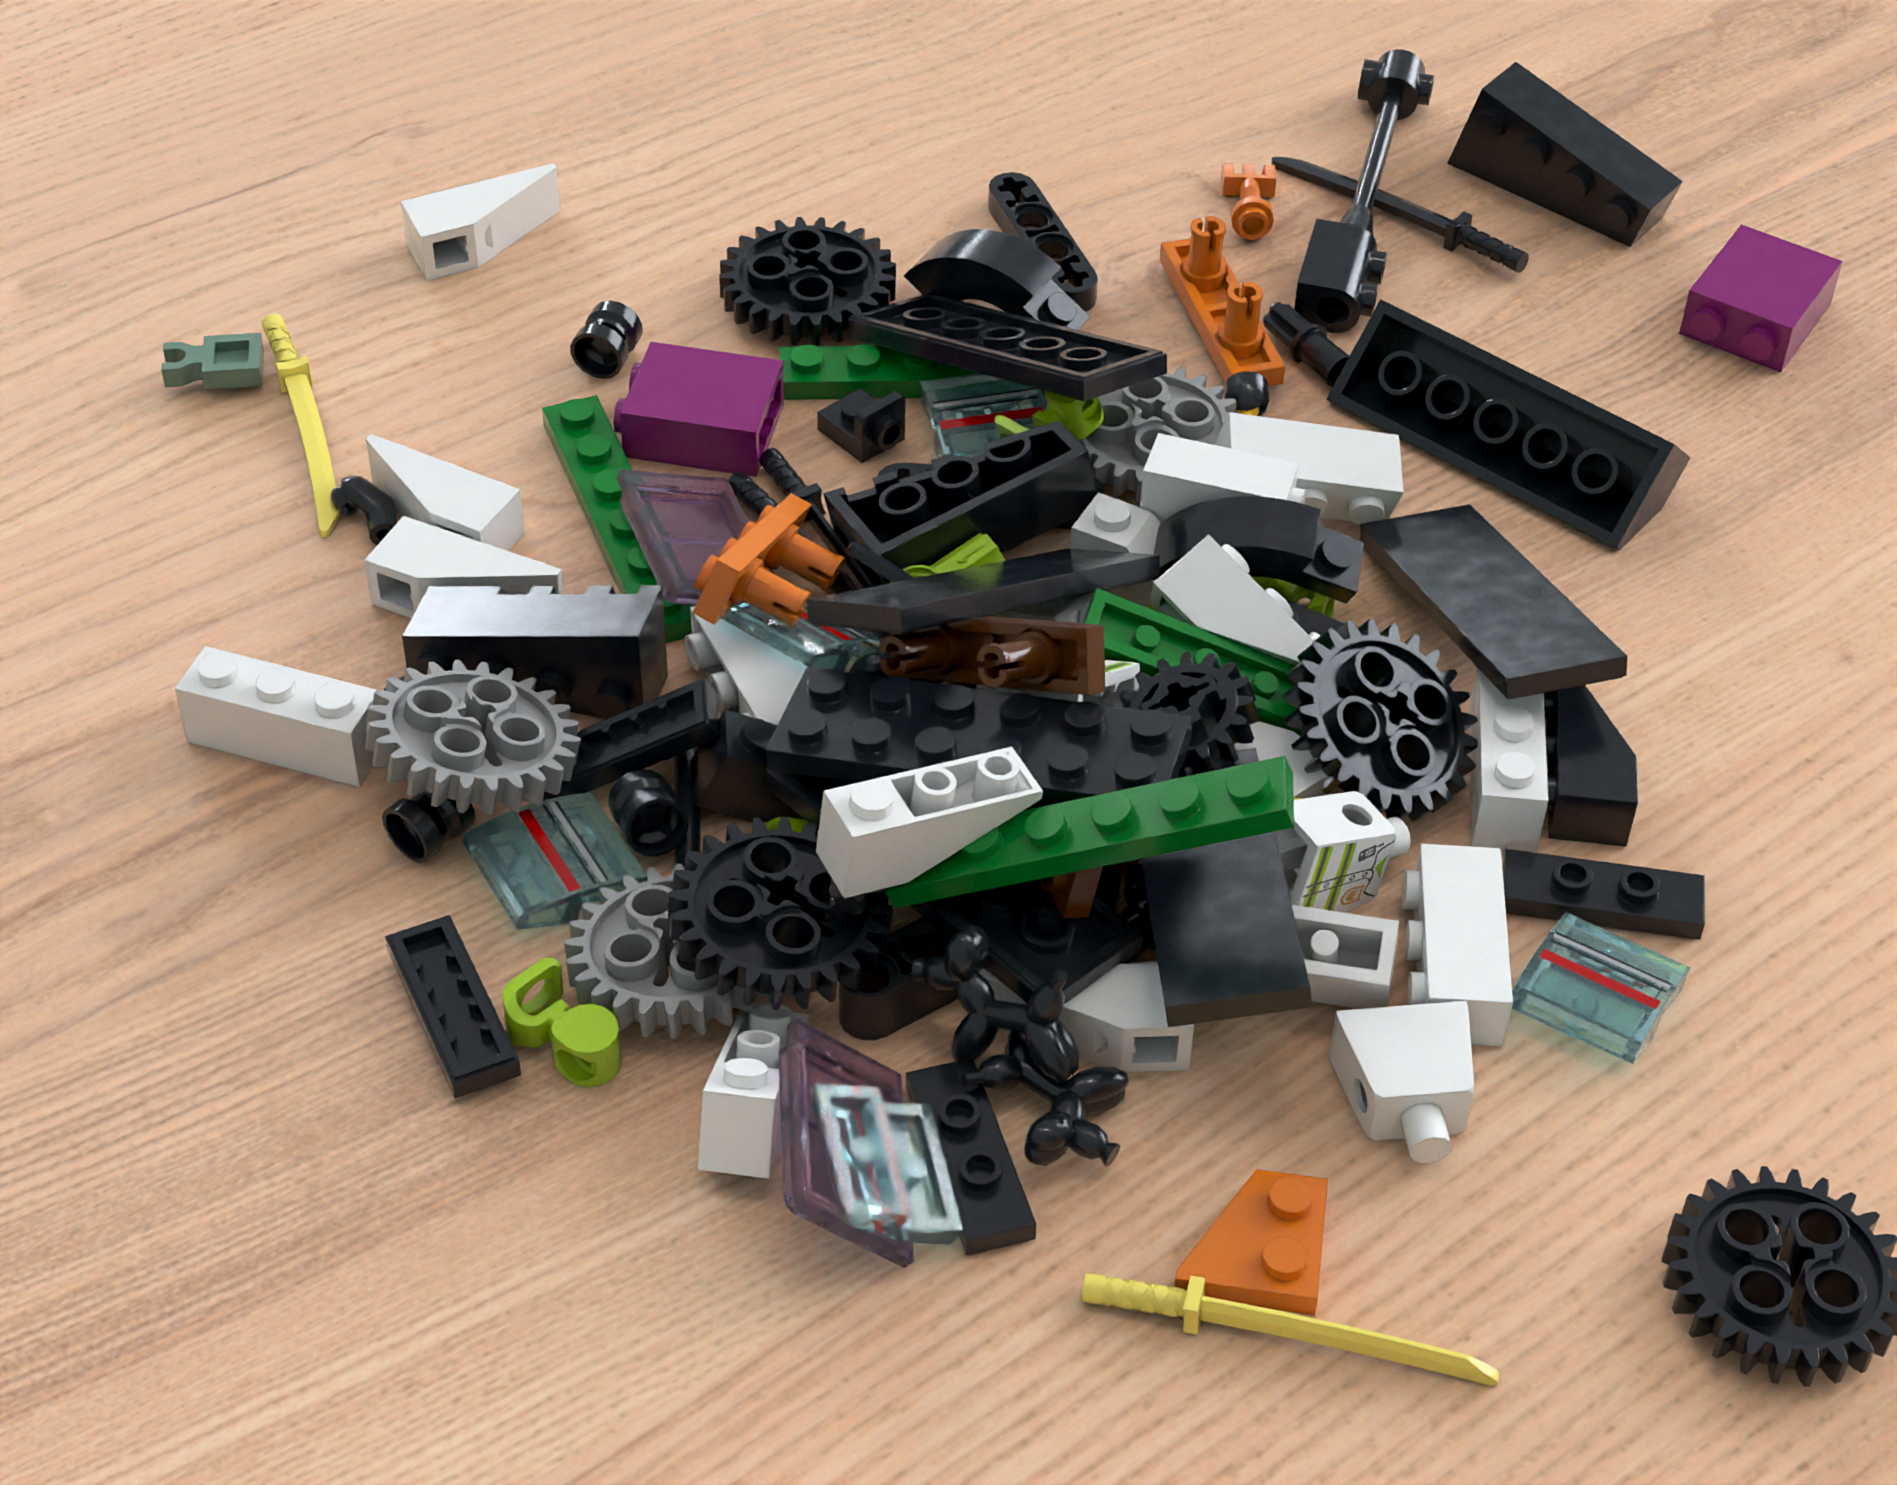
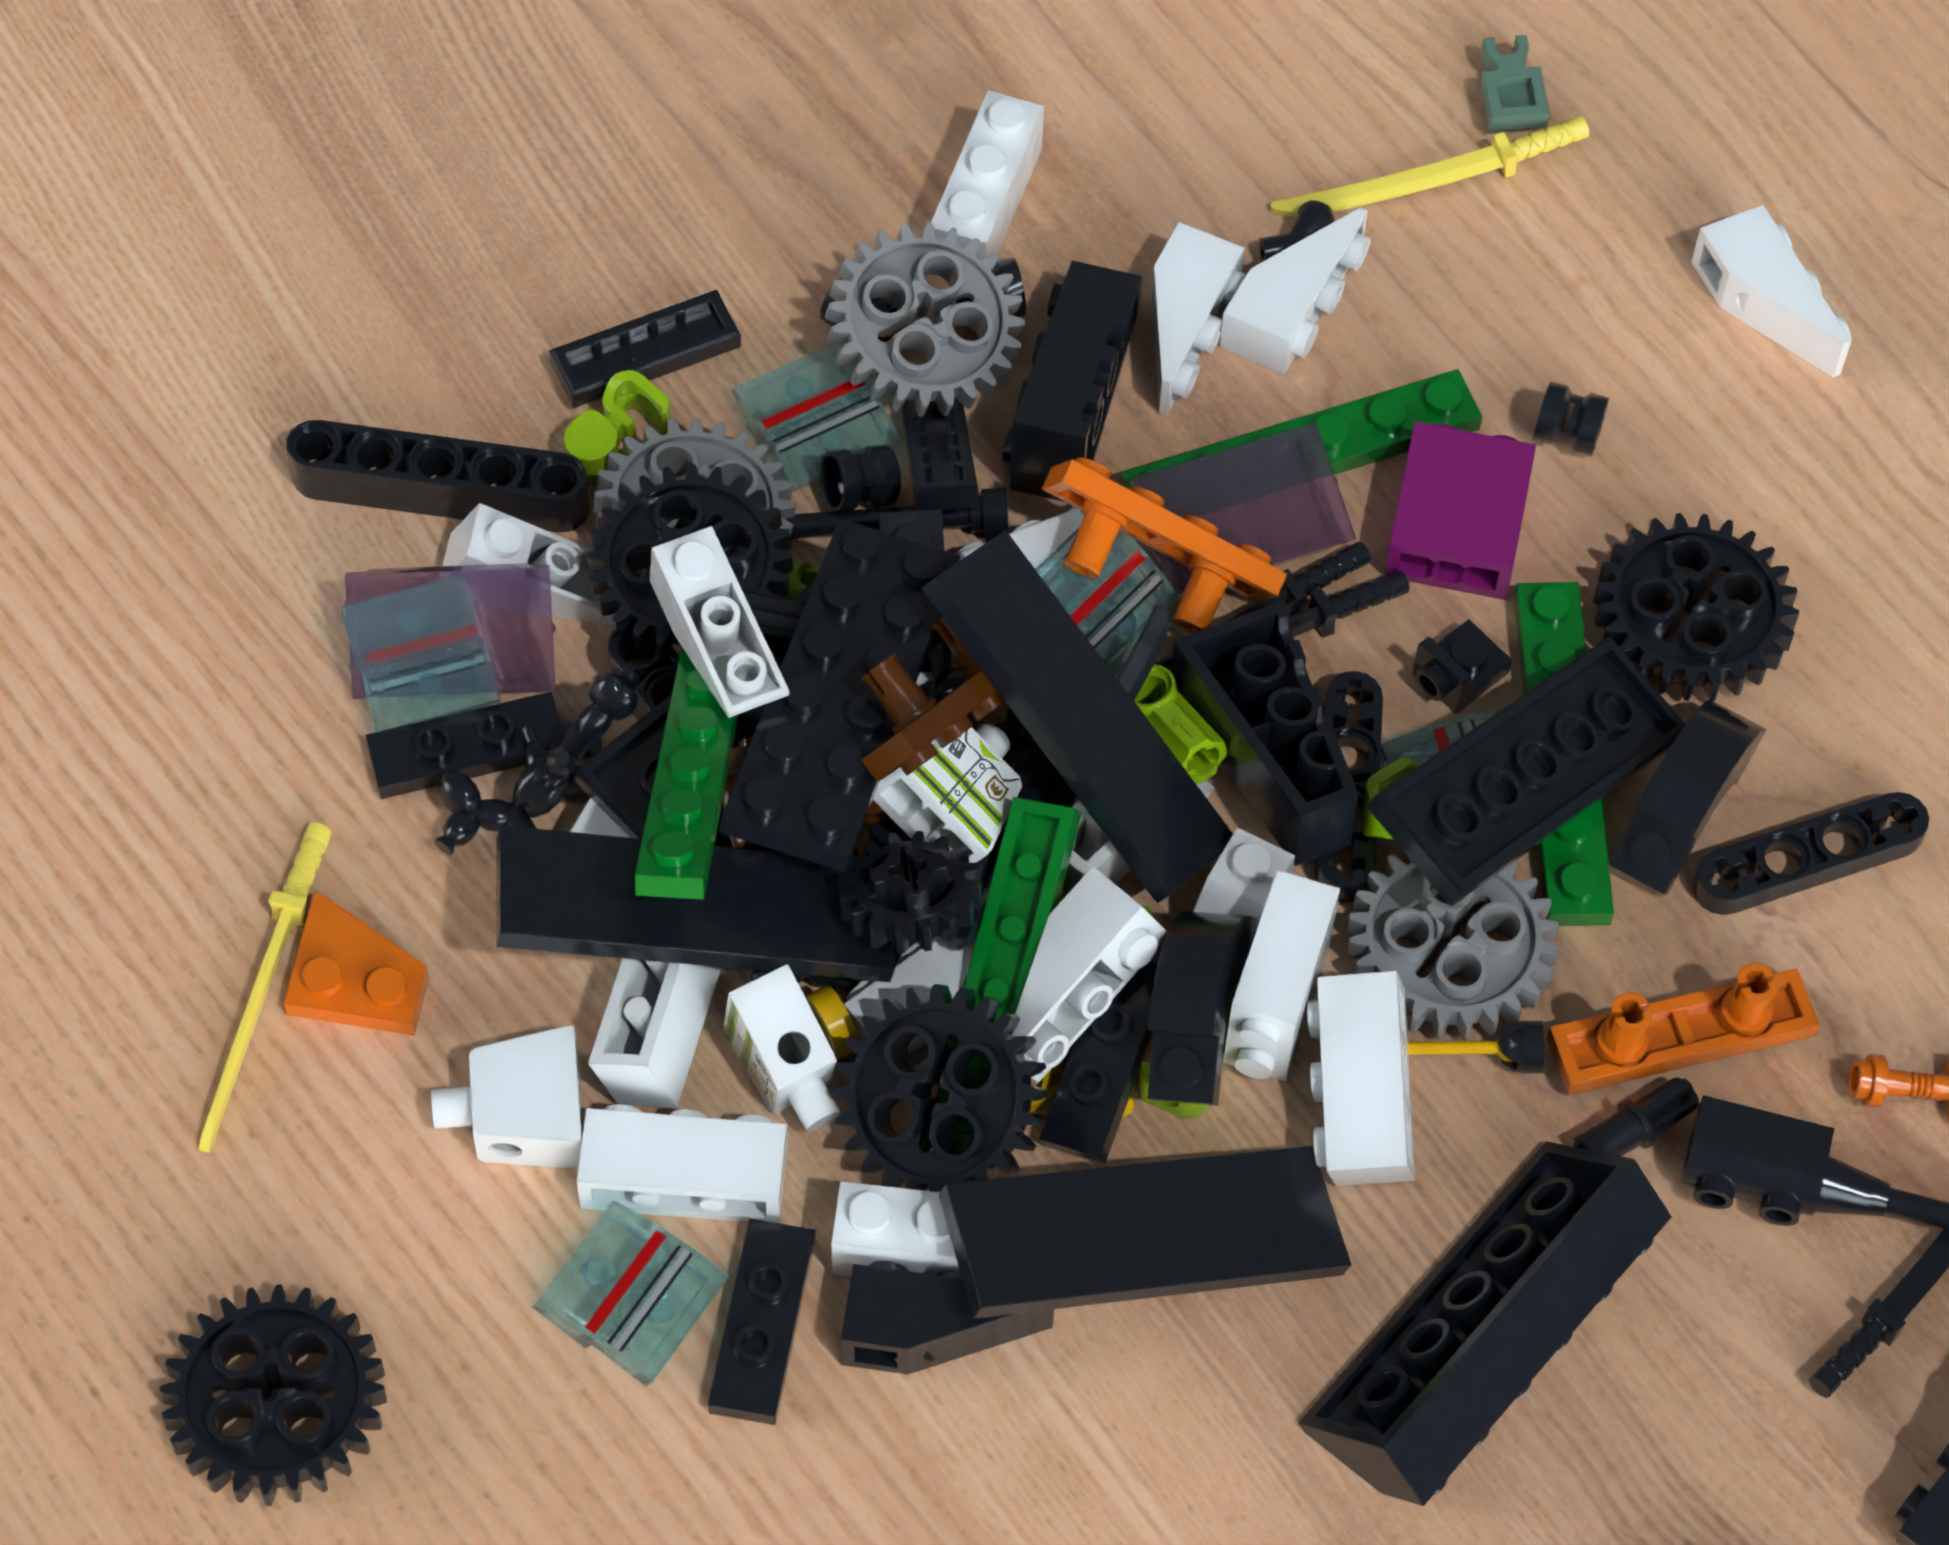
camera: 90 degrees right, 15 degrees up
(617, 1189) = (416, 457): none -> black beam

